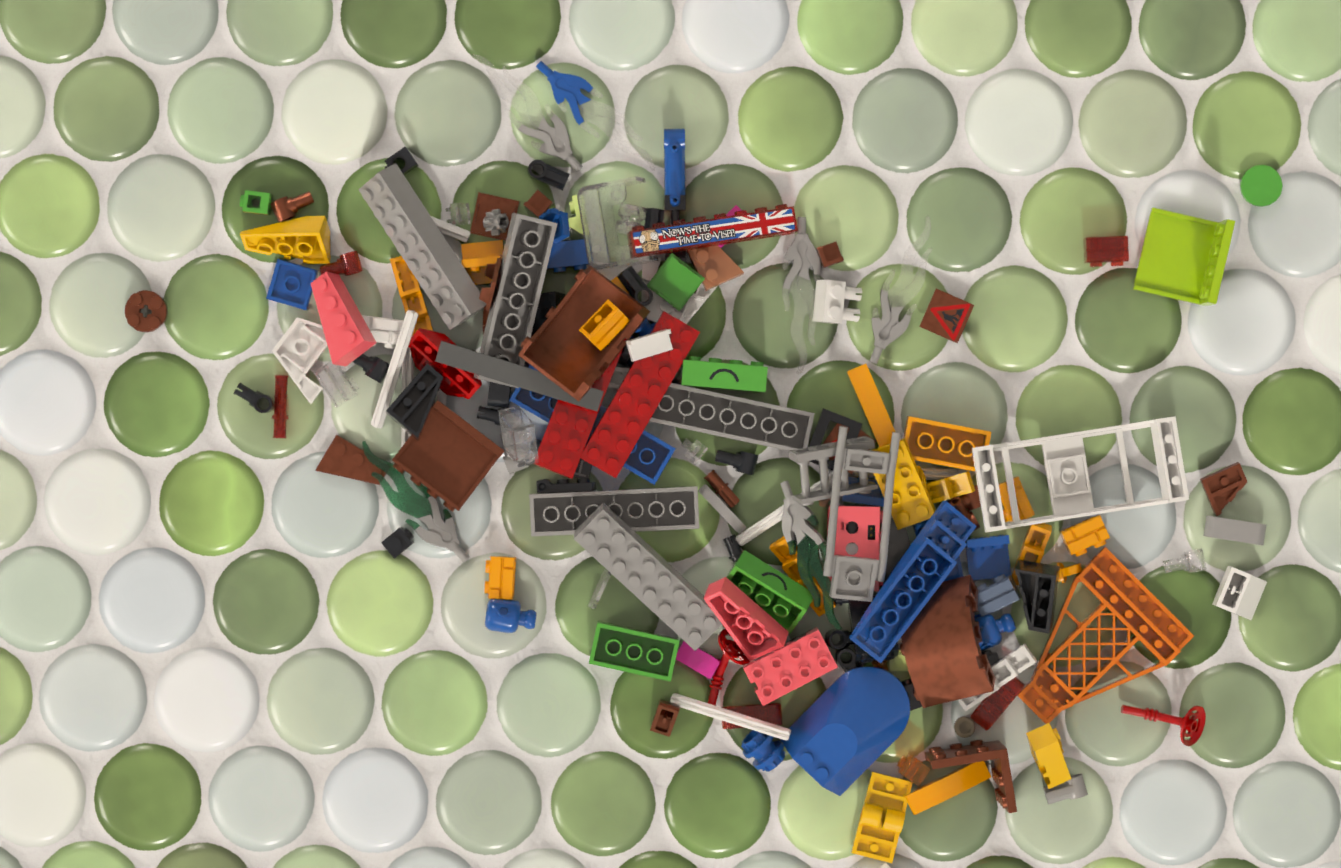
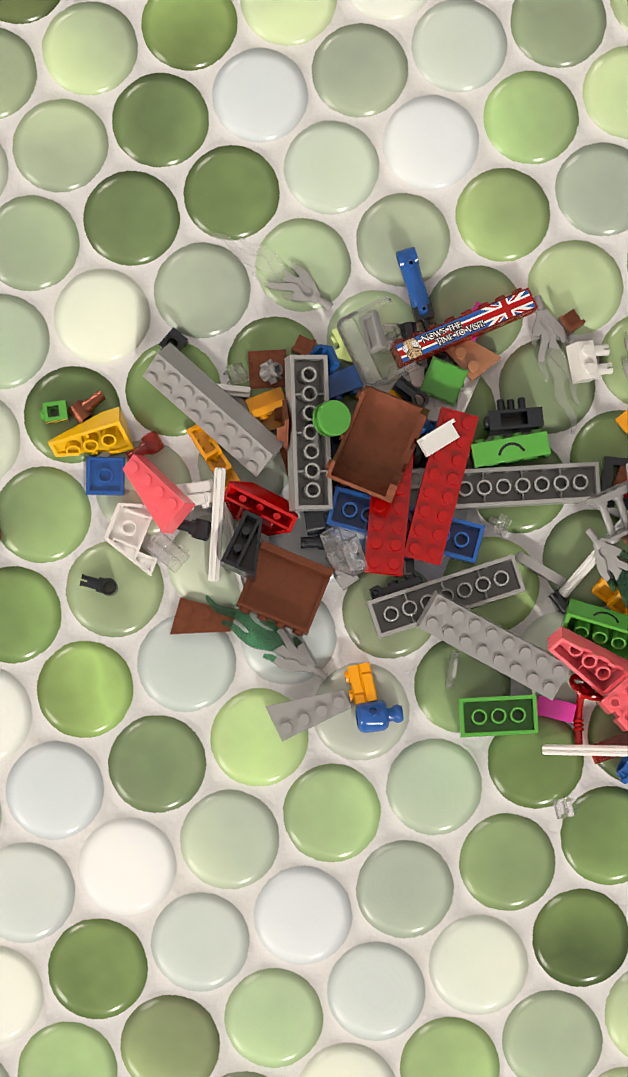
camera: 25 degrees left, 5 degrees down
(280, 406) = (124, 586): clear red pin -> none
(398, 541) = (261, 677): black bracket -> none
(430, 593) = (301, 714): none -> light grey wedge
(511, 374) = (325, 497): dark grey tile -> none
(542, 293) = (331, 418): none -> bright green head
(550, 175) = (307, 319): black piece -> none
(584, 109) = (331, 254): piece -> none
(604, 325) = (393, 431): light orange brick -> none
(615, 209) = (373, 332): none -> light grey tile
(664, 718) = (541, 769): copper slope -> none
(677, 764) = (564, 808): none -> clear tile
(722, 489) = (534, 552): copper axle -> none
(736, 343) = (513, 419): none -> black piece
(742, 462) = (547, 523): black pin -> none

